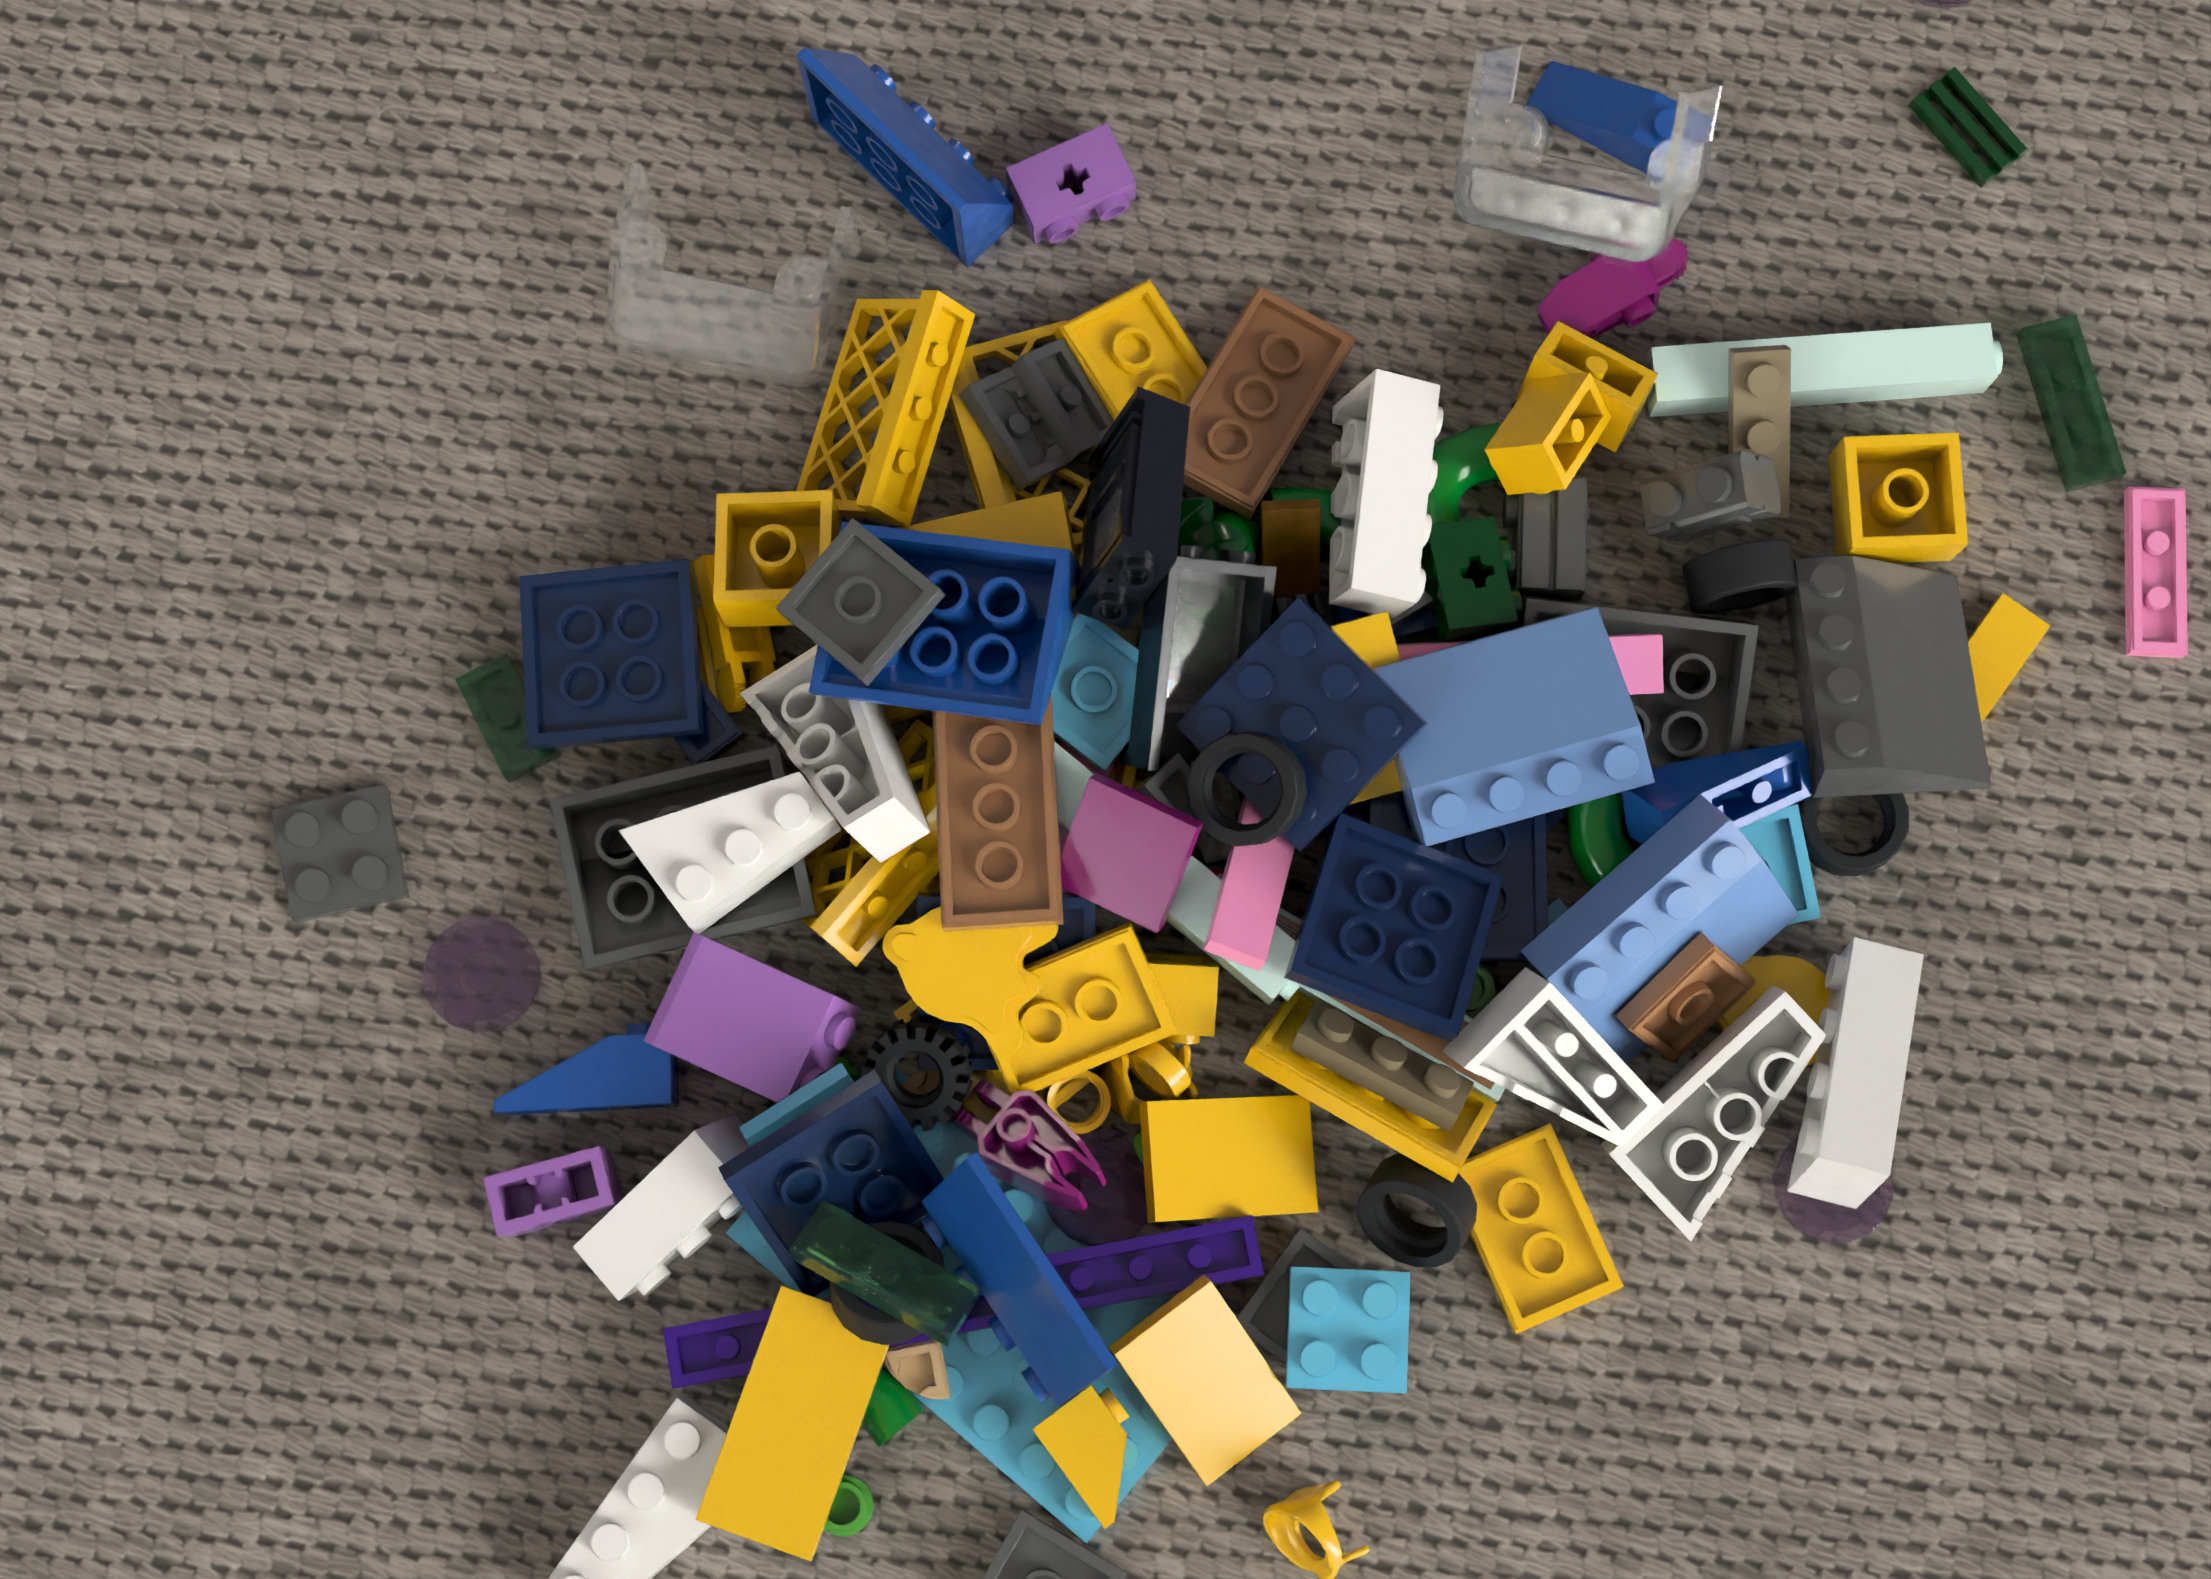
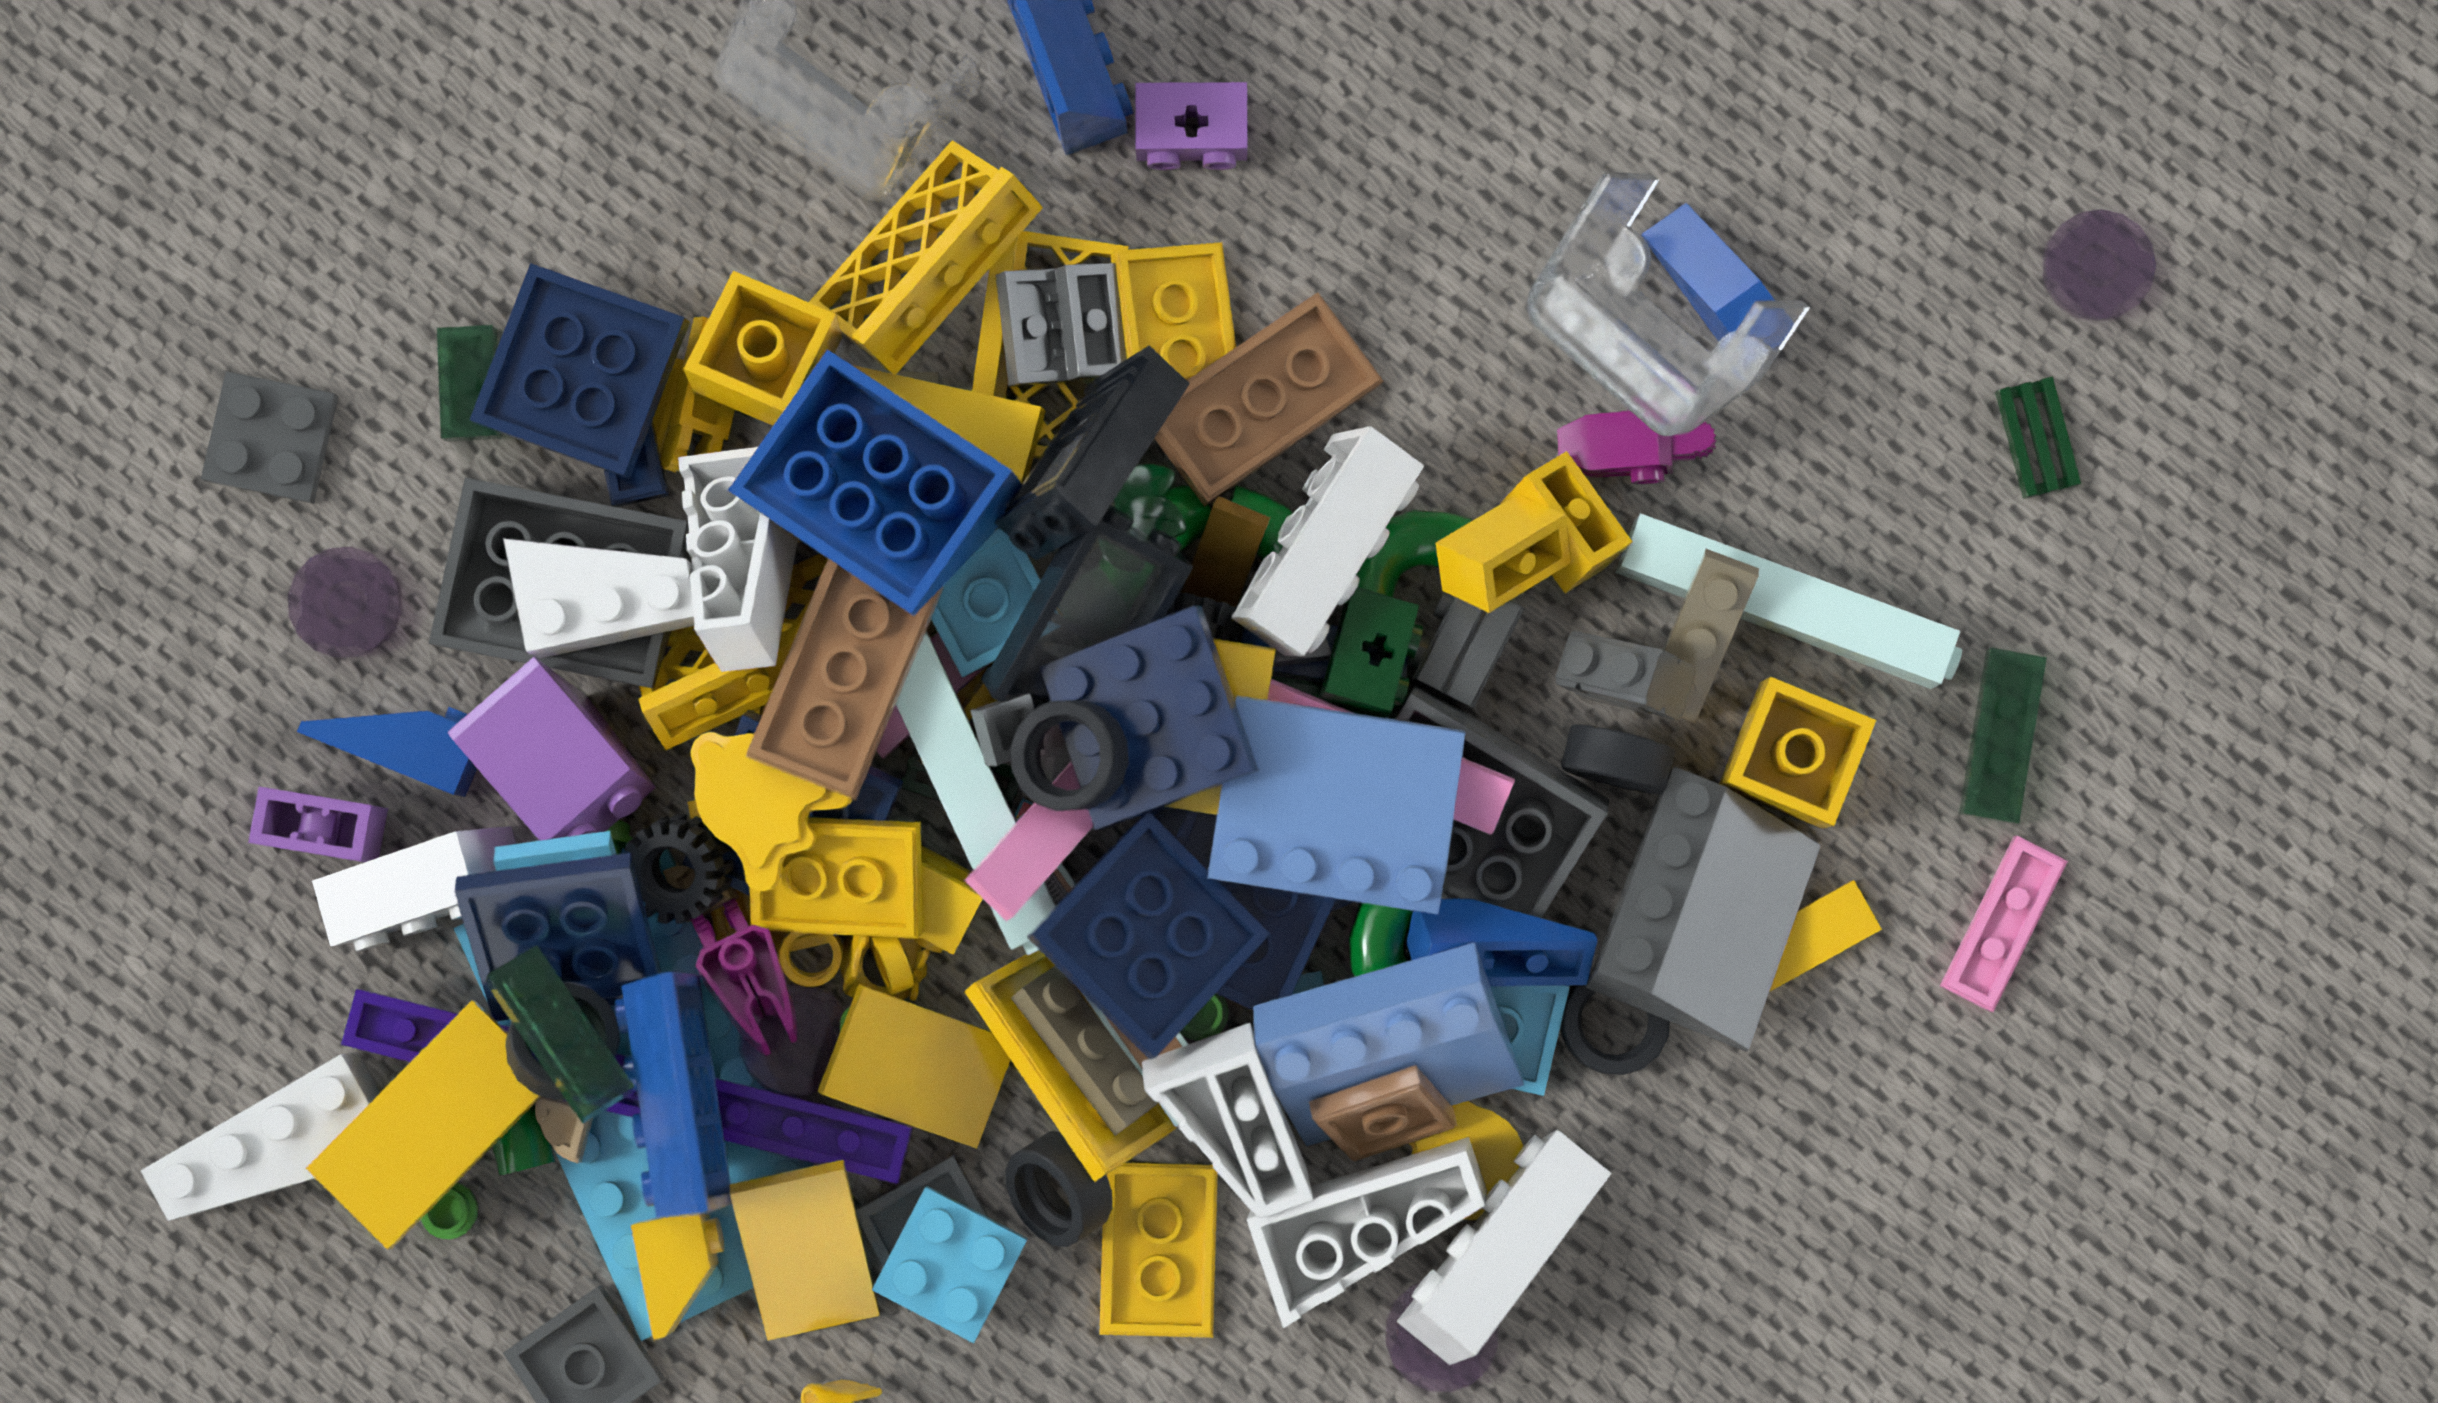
camera: 25 degrees right, 5 degrees up
(860, 601) = (805, 432): dark grey plate -> none
(1127, 852) = (940, 762): magenta tile -> none

